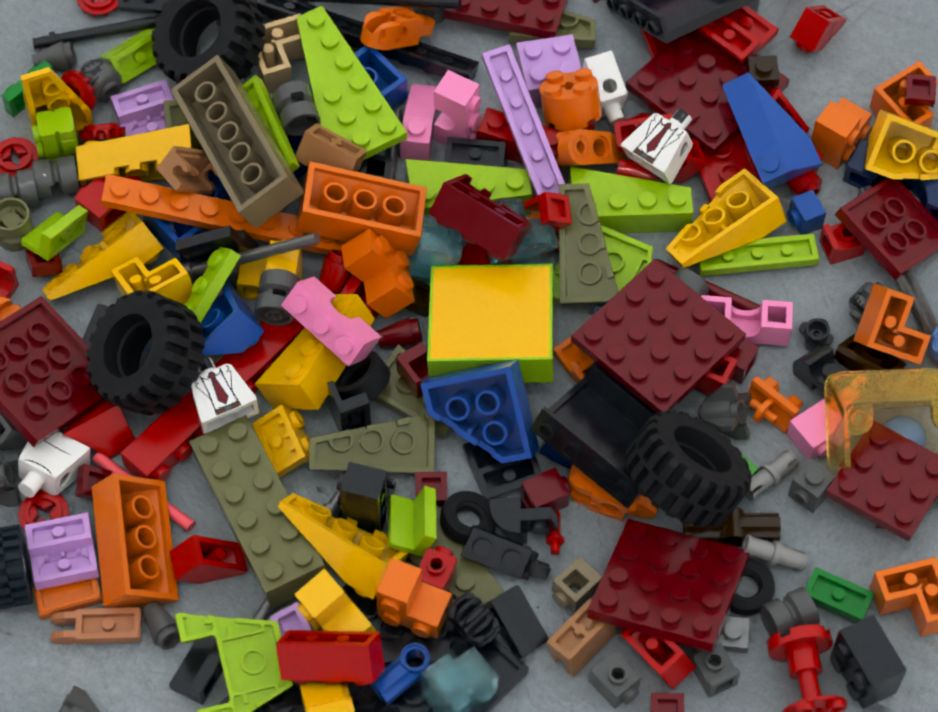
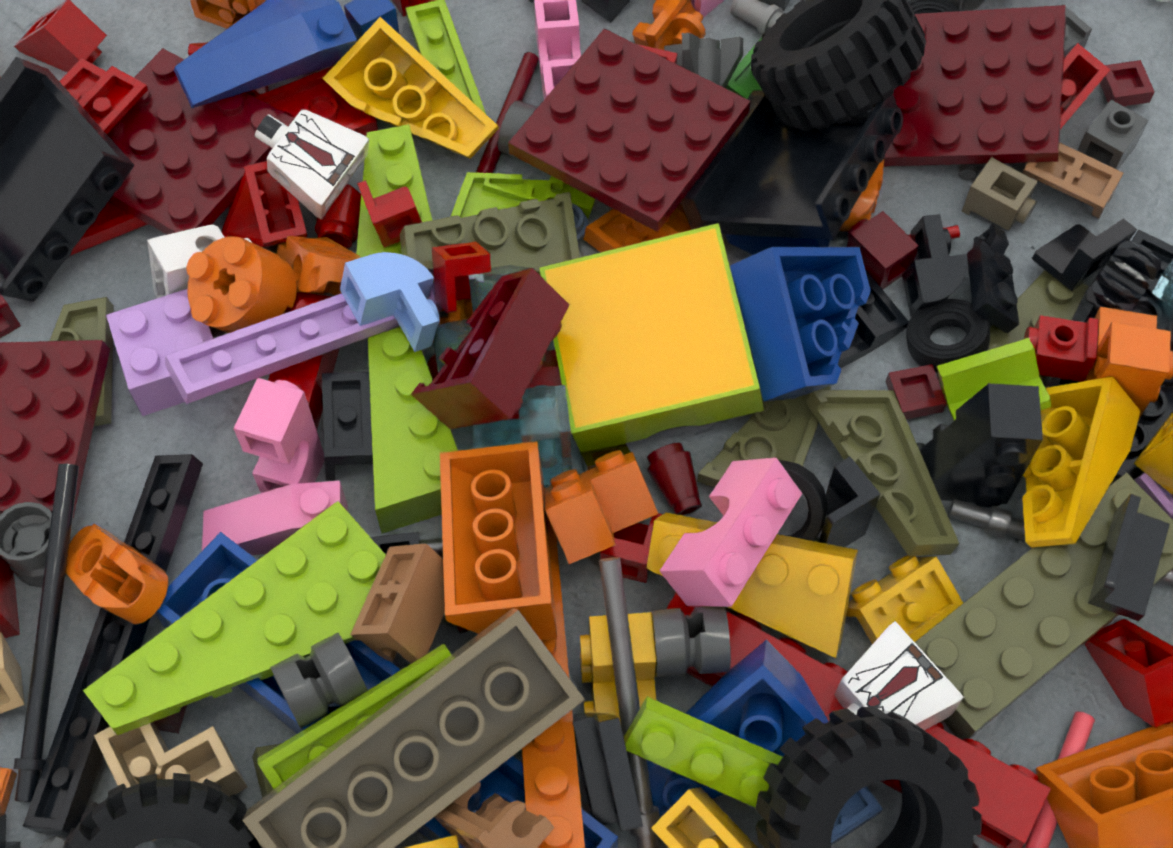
camera: 100 degrees left, 0 degrees up
(261, 535) = (1129, 561): none -> black panel
(333, 273) = (583, 583): red brick -> none
(413, 368) = (747, 434): dark red panel -> none
(545, 174) = (391, 286): none -> light blue brick
(611, 183) = (390, 212): none -> red panel
(764, 69) = (156, 66): dark brown plate -> none

